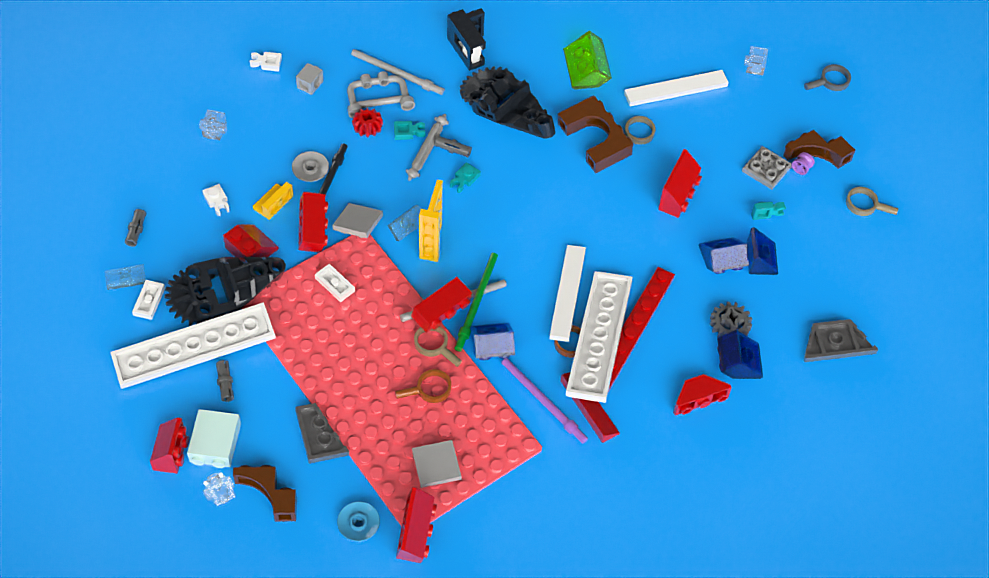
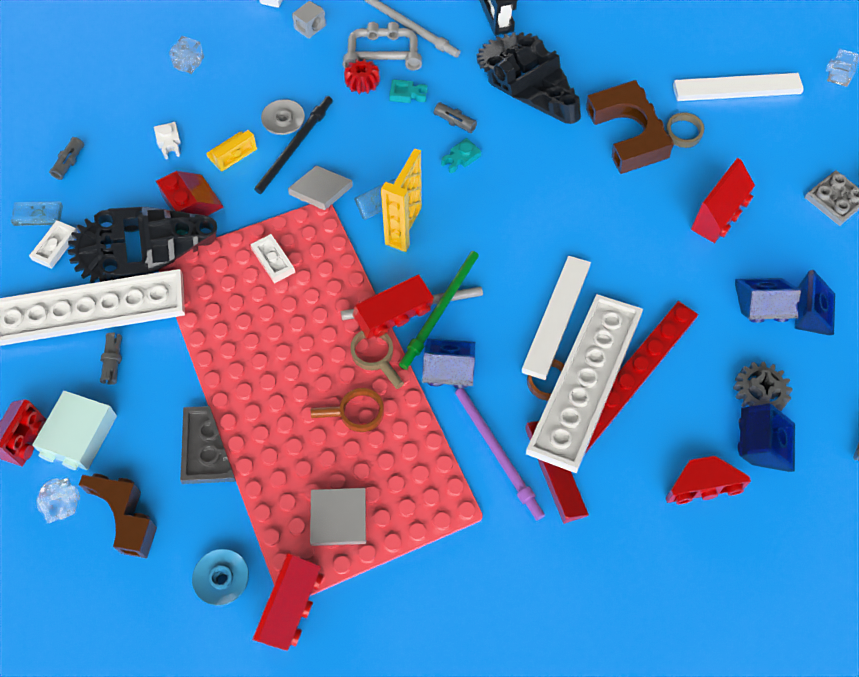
camera: 15 degrees right, 5 degrees up
(312, 222) = (266, 181): red brick -> none
(427, 147) = (424, 114): light grey wheel -> none
(587, 62) = (635, 42): clear neon green slope -> none
(765, 210) = (830, 249): teal plate -> none

